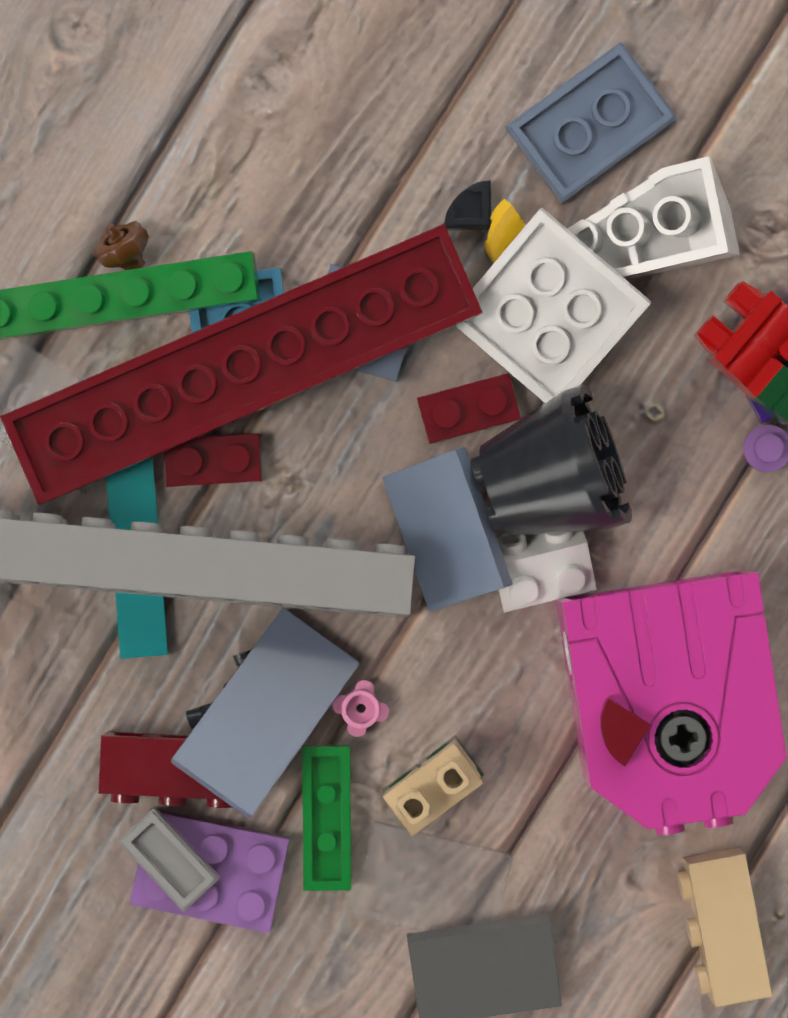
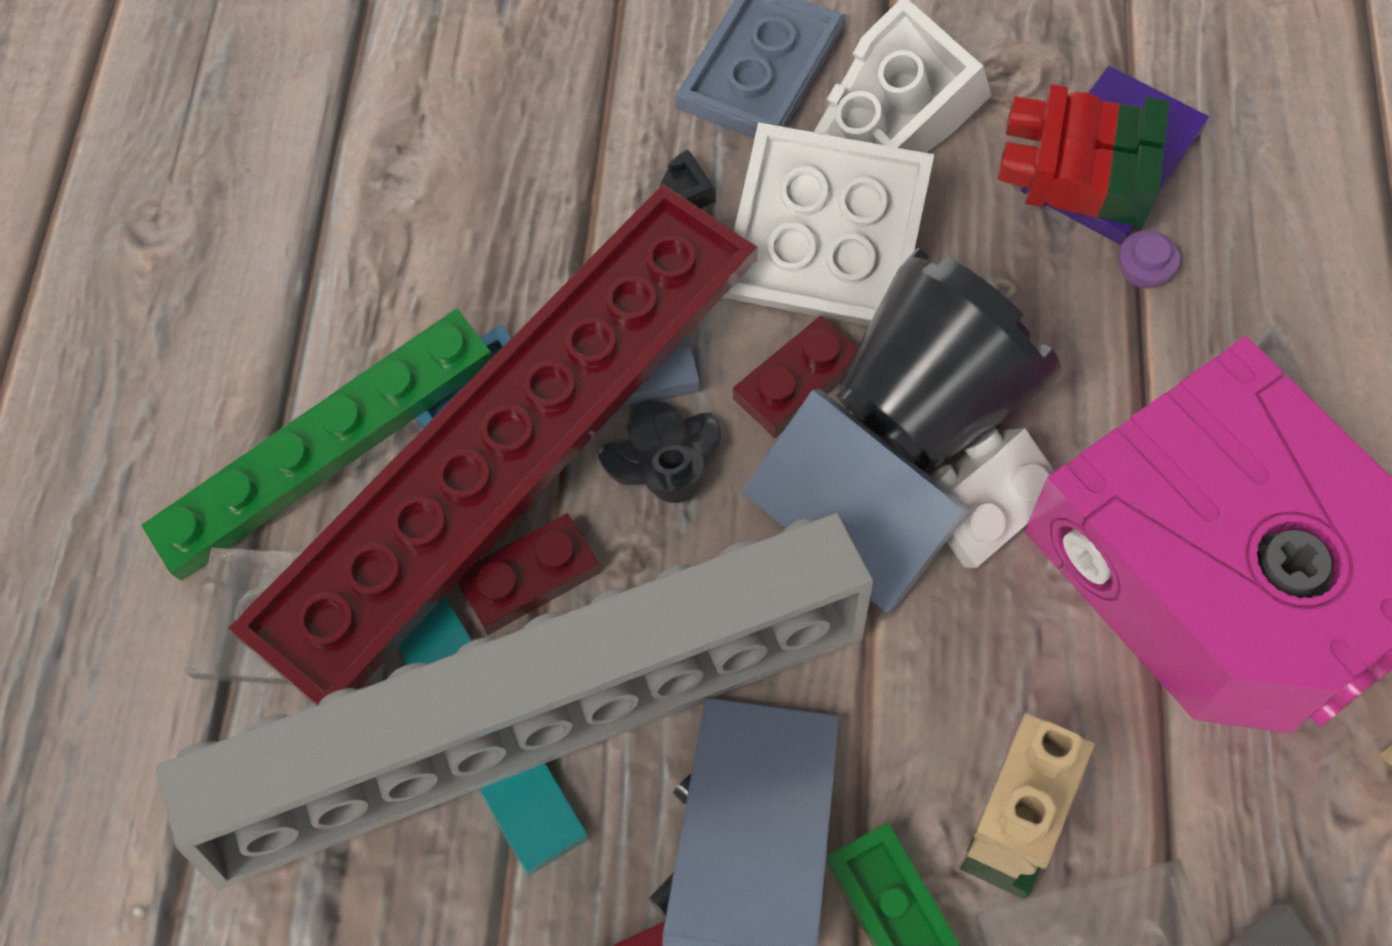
camera: 25 degrees left, 25 degrees down
(122, 246) = (304, 389): reddish brown piece -> none
(345, 410) = (663, 451): none -> black plate
(364, 695) = (868, 754): bright pink plate -> none
(503, 230) = (729, 180): yellow tile -> none
(621, 730) = (1222, 581): dark red tile -> none

